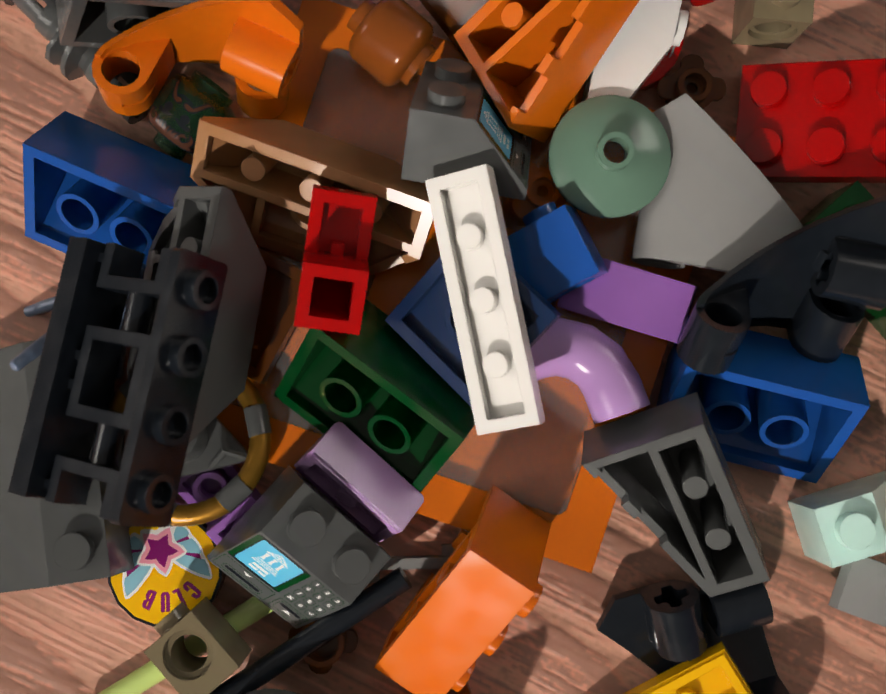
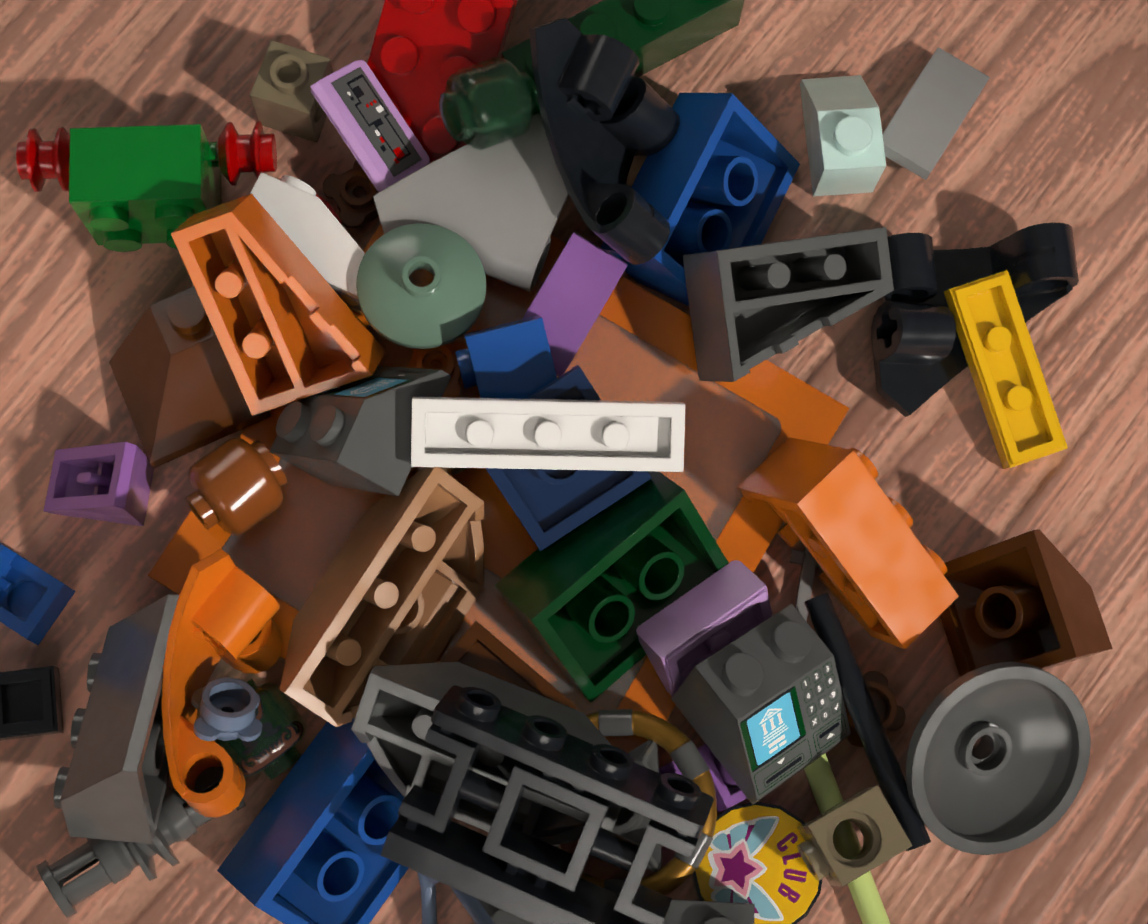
camera: 85 degrees left, 10 degrees down
(198, 74) = (226, 711): none -> sand blue plate
(336, 260) = (477, 589): red brick -> none
(594, 365) = (638, 348): lavender cylinder -> none
(757, 74) = (370, 124): none -> slope
(803, 176) = (488, 103): none -> clear green head

